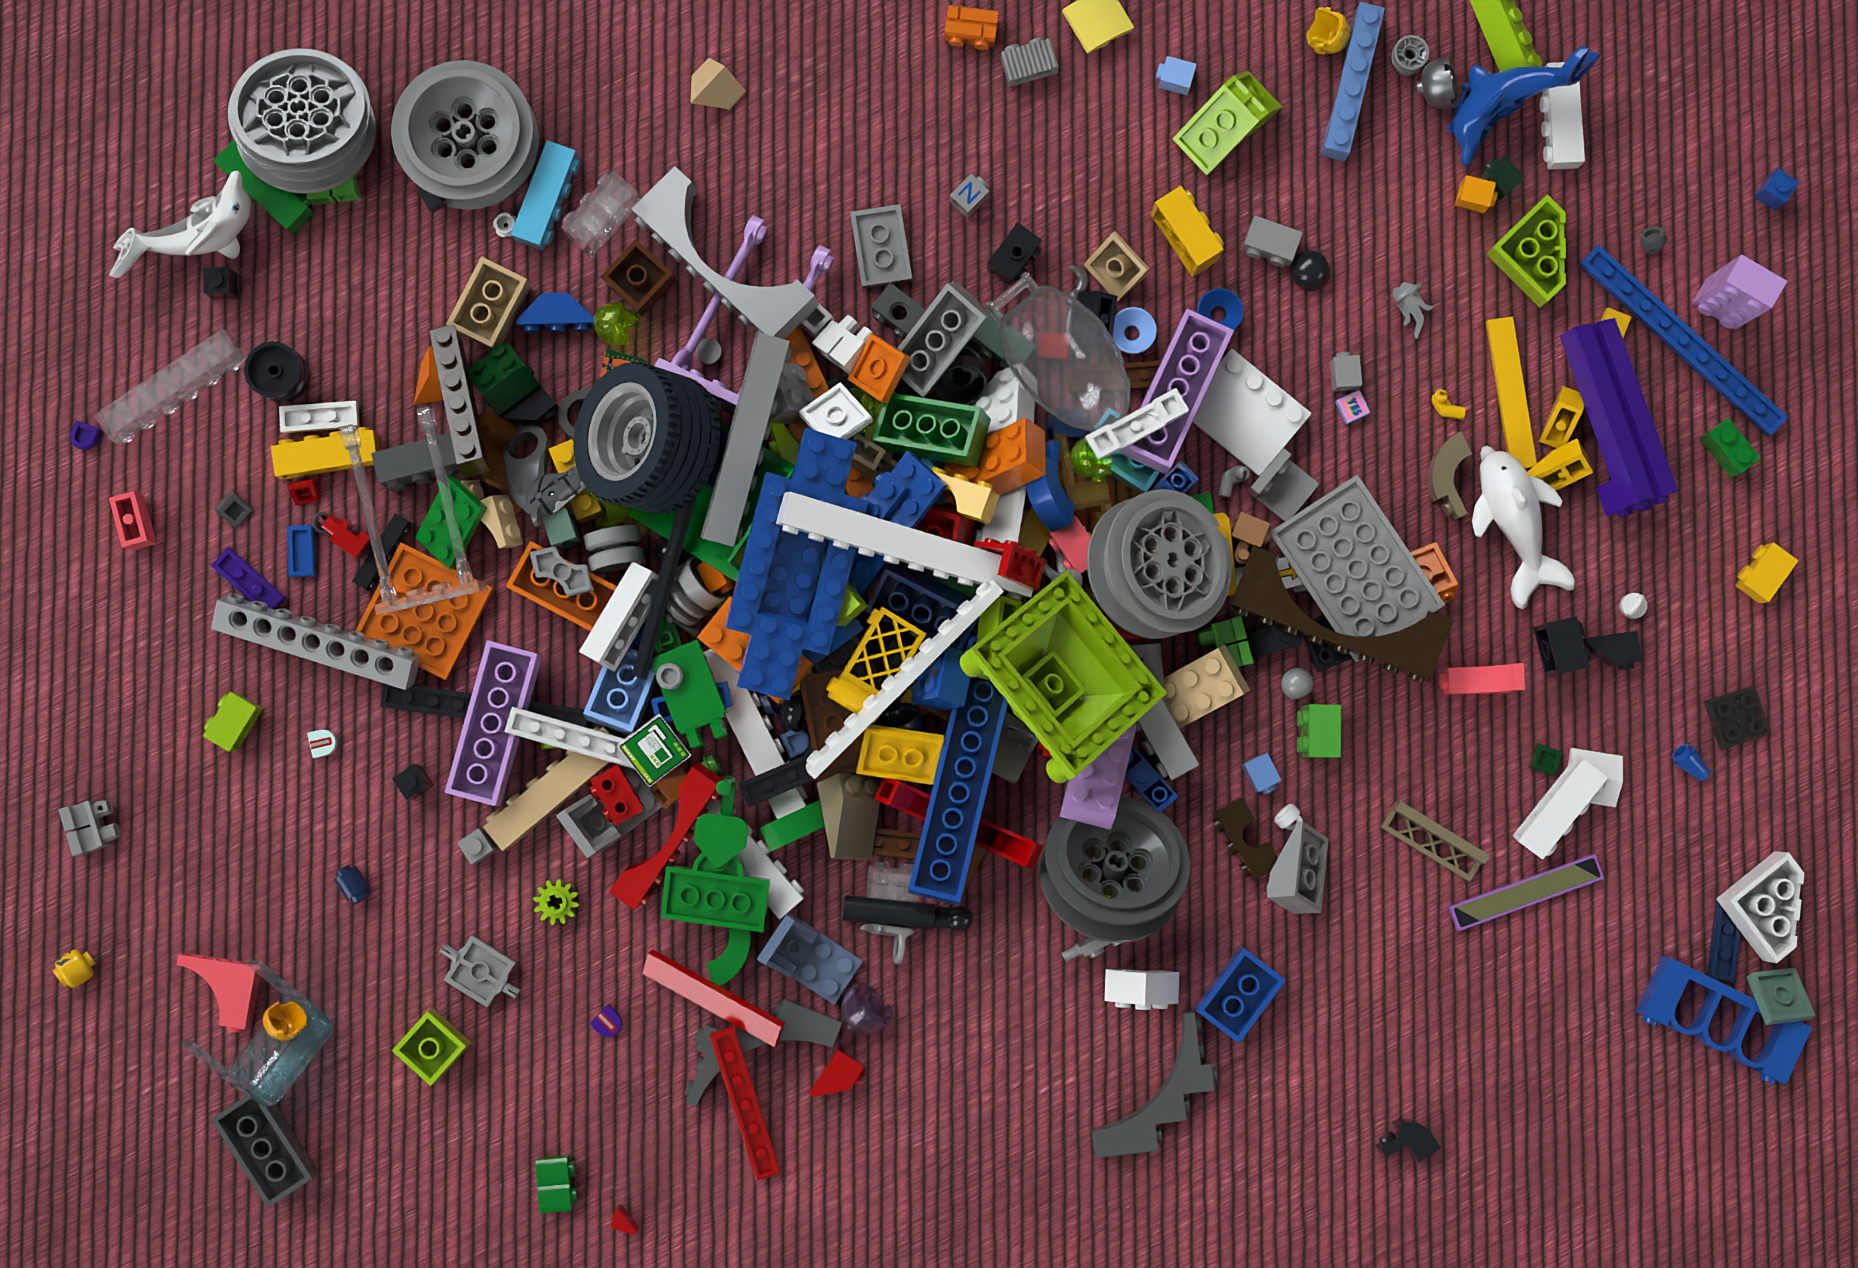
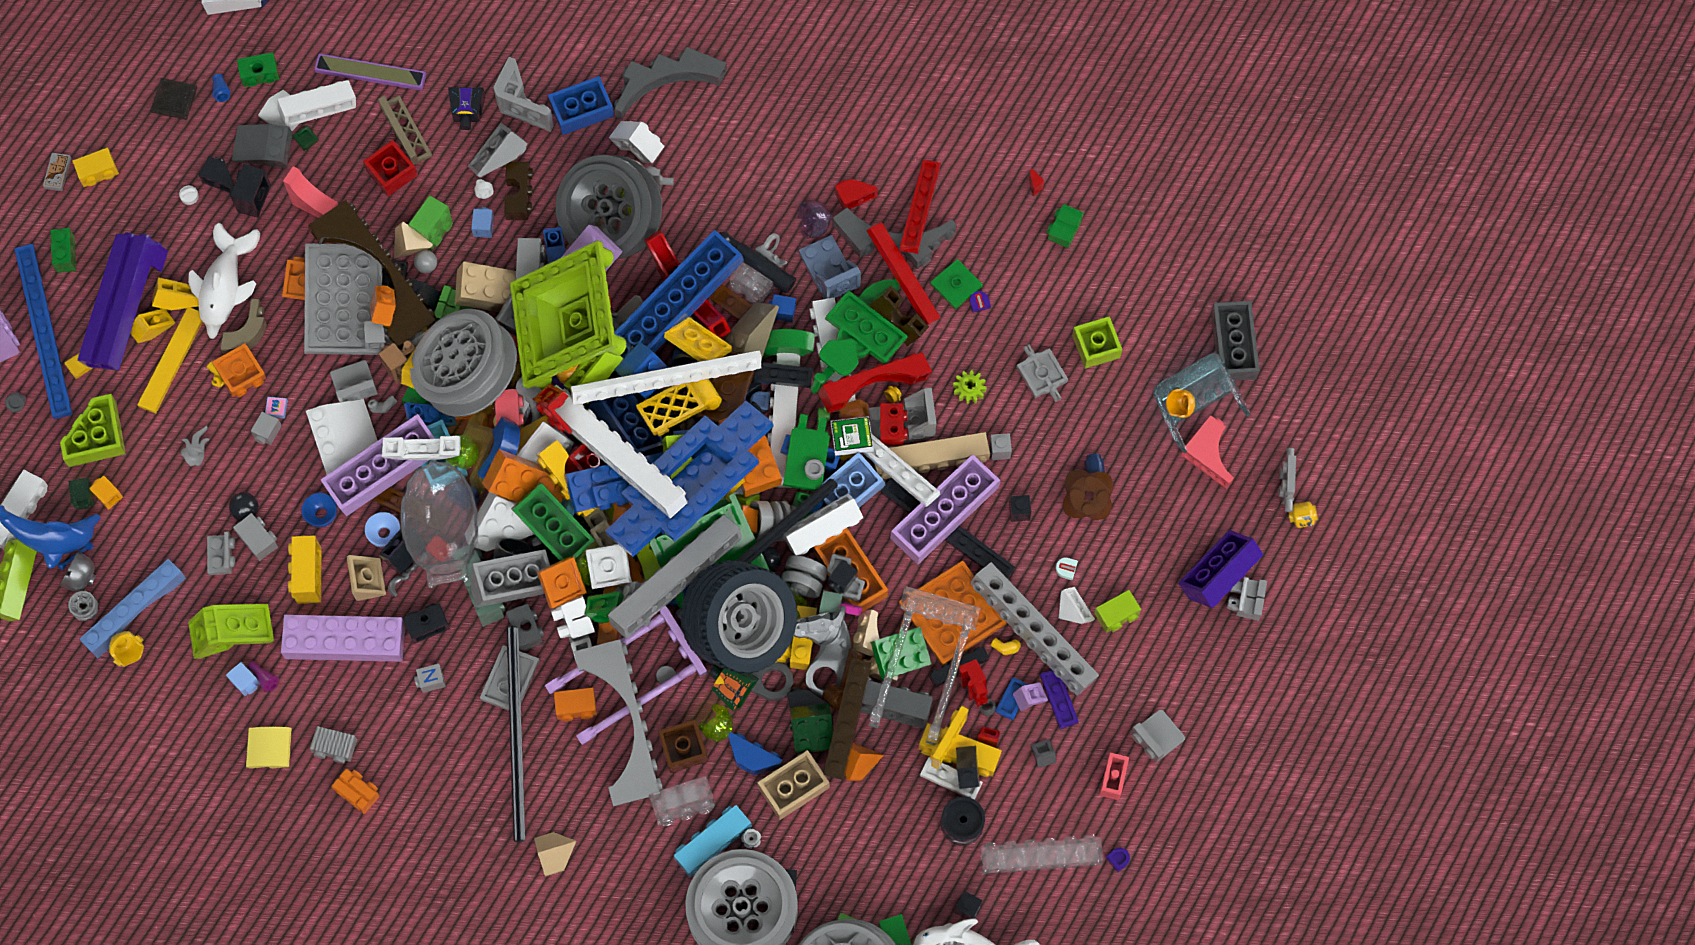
camera: 150 degrees left, 15 degrees down
(109, 999) = (1287, 474): none -> light grey plate
(110, 599) = (1157, 735): none -> light grey bracket
(133, 838) = (1220, 568): none -> dark purple brick
(276, 558) = (1030, 695): none -> lavender slope
(286, 698) = (1073, 607): none -> white slope
(298, 429) = (967, 767): none -> black slope
(333, 451) = (948, 737): none -> yellow plate
(340, 604) = (1006, 648): none -> yellow arm
(354, 851) = (1077, 483): none -> reddish brown brick
(532, 535) = (852, 609): none -> dark pink tile
(559, 561) = (842, 577): none -> black brick
(643, 840) = (892, 394): none -> yellow plate
(647, 1028) = (956, 284): none -> green plate
(706, 942) = (887, 306): none -> dark brown arch
(788, 259) = (575, 704): none -> orange brick
(813, 369) = (600, 606): none -> green plate
(834, 187) = (515, 734): none -> black axle
(837, 873) = (786, 307): none -> blue brick
(1096, 183) = (343, 638): none -> lavender brick
(1152, 91) = (266, 679): none -> magenta cone
(1290, 543) = (373, 335): none -> light grey brick
(1298, 201) = (220, 554): none -> light grey bracket
(1300, 577) = (382, 305): none -> orange brick
(1329, 690) = (408, 241): none -> tan slope
(1339, 970) = (512, 100): none -> light grey bracket
(1379, 914) = (466, 105): none -> black torso
(1416, 775) = (390, 168): none -> red brick
(1422, 420) = (239, 370): none -> orange plate
(1589, 717) = (263, 145): none -> dark grey slope
(1676, 808) = (264, 62): none -> green brick
(1808, 543) = (57, 172): none -> tile

